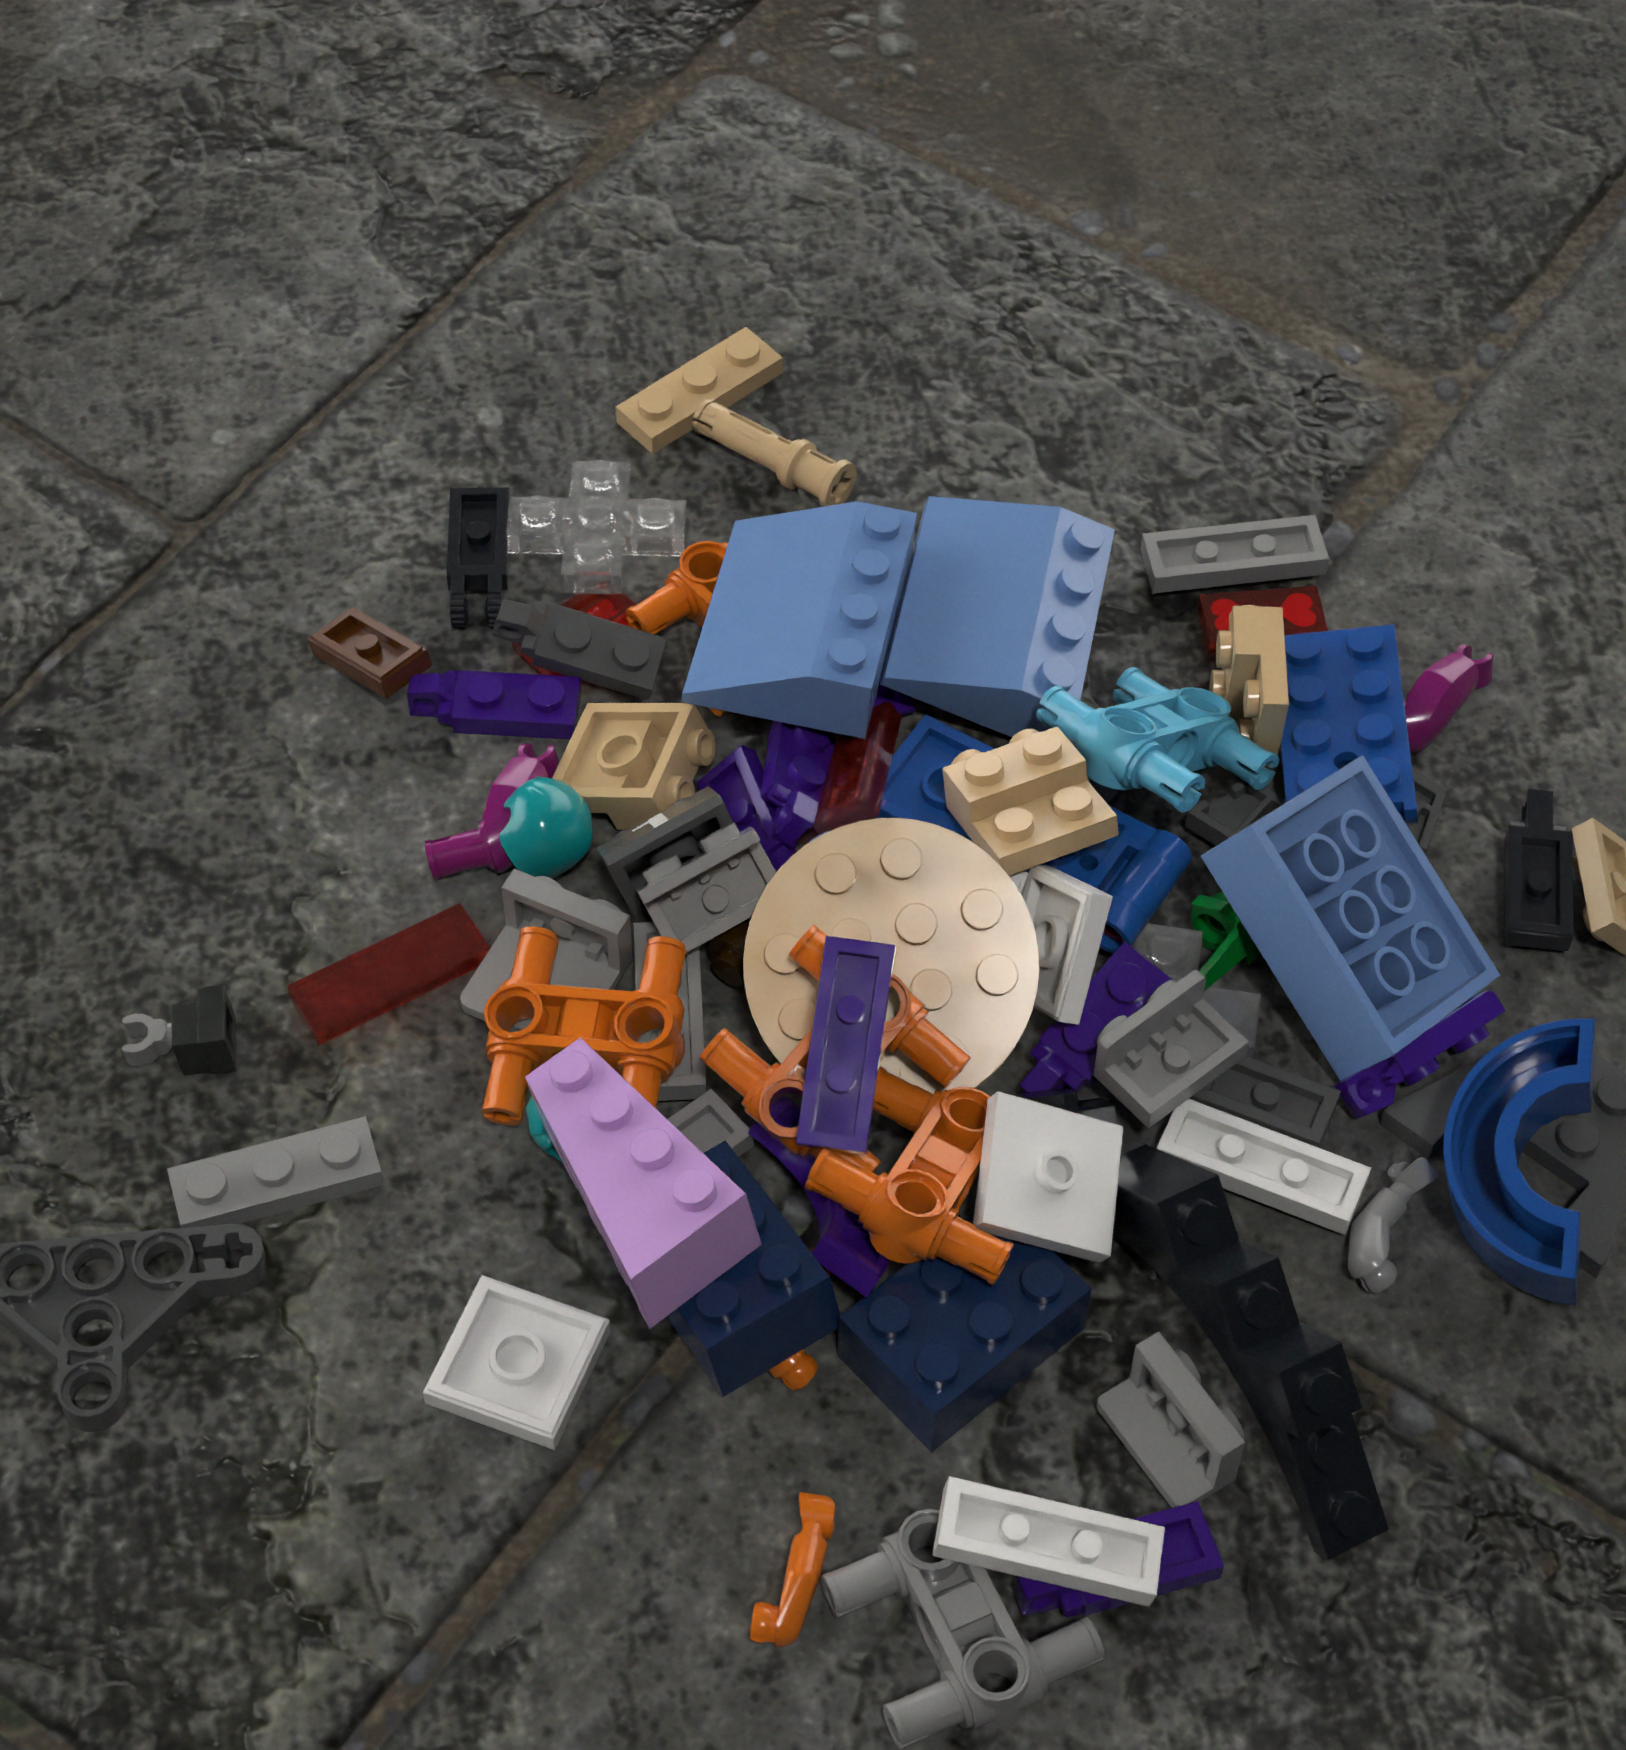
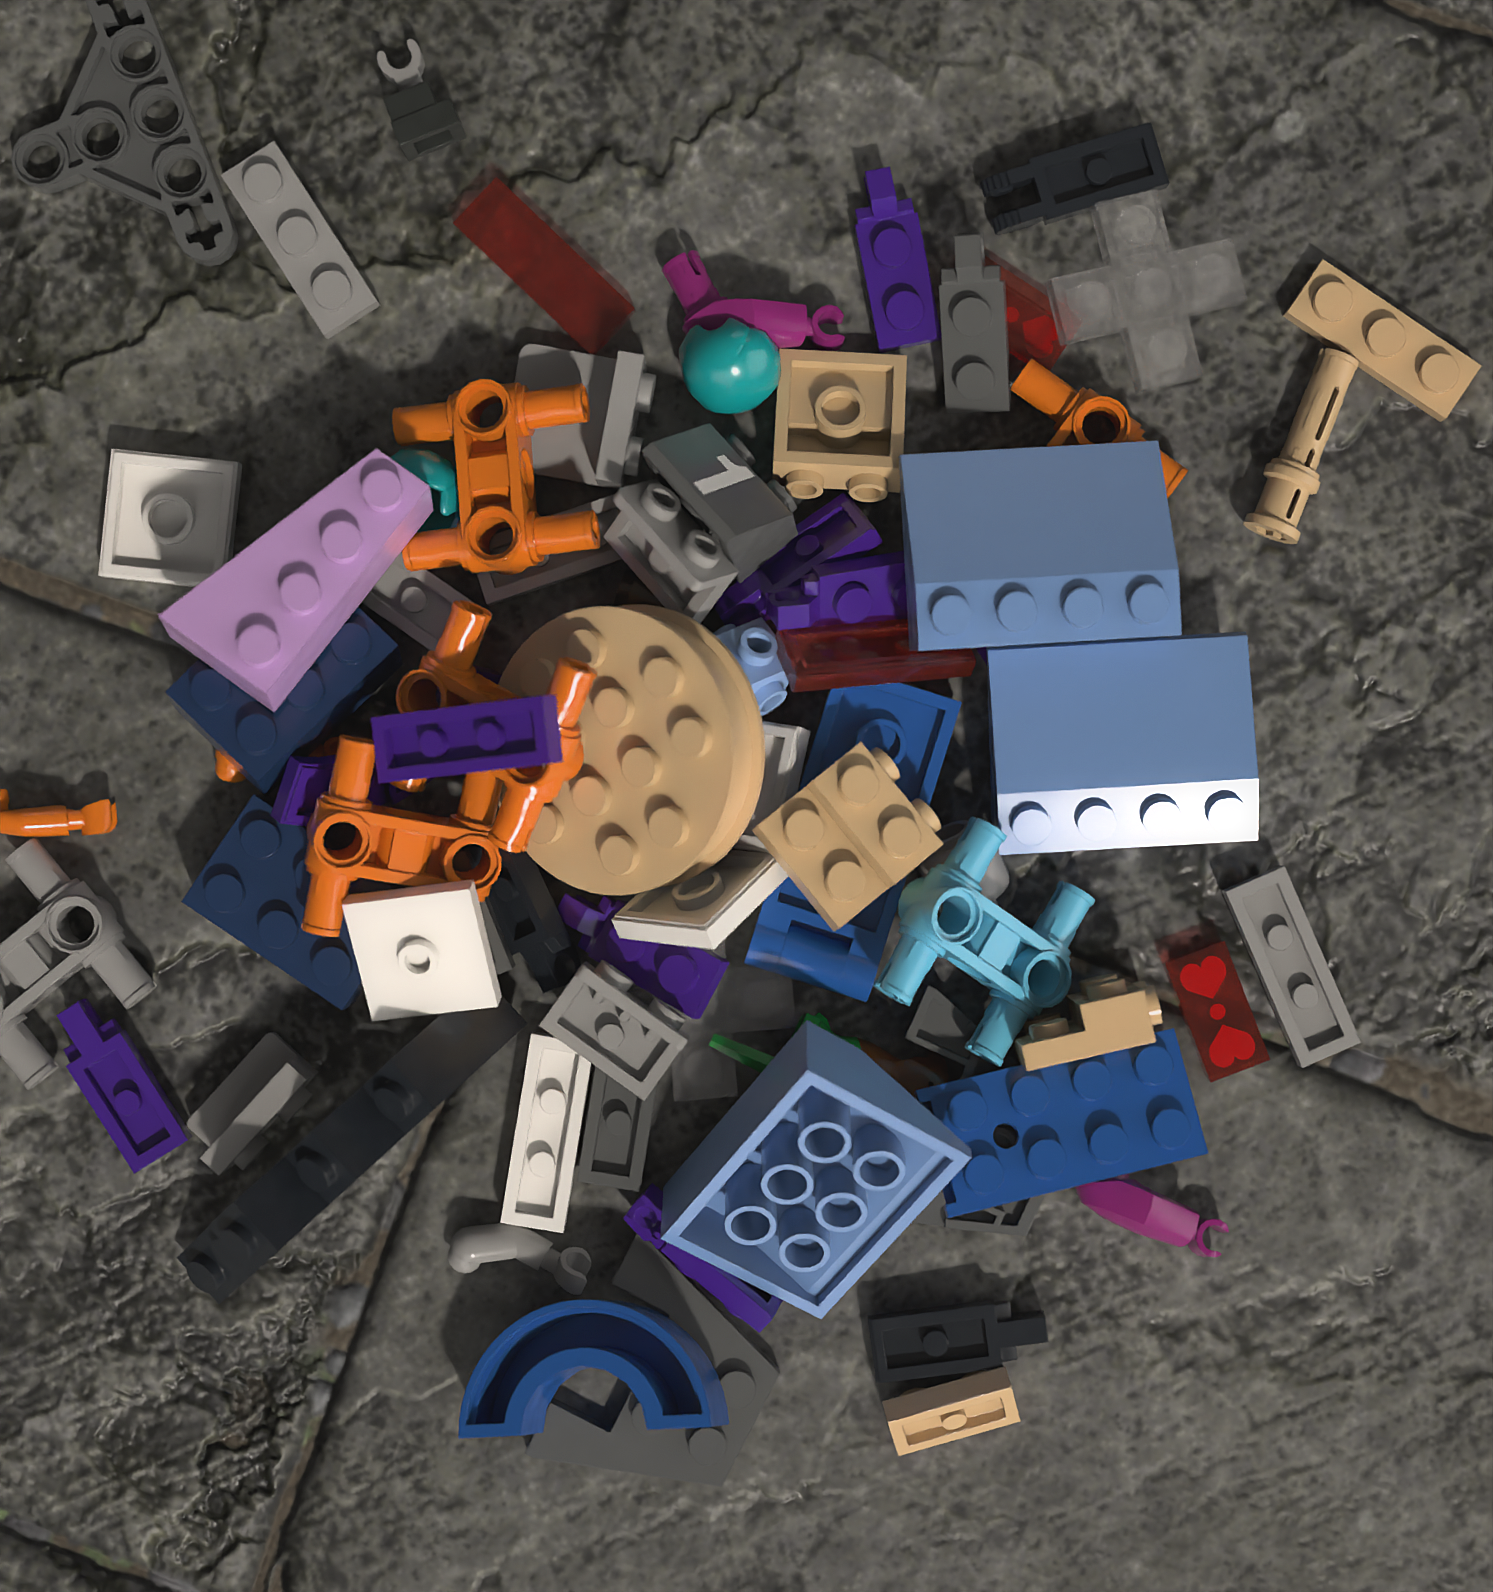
camera: 75 degrees right, 35 degrees up
(369, 652) = (913, 113): reddish brown plate -> none
(1049, 1541) = (88, 1026): white plate -> none

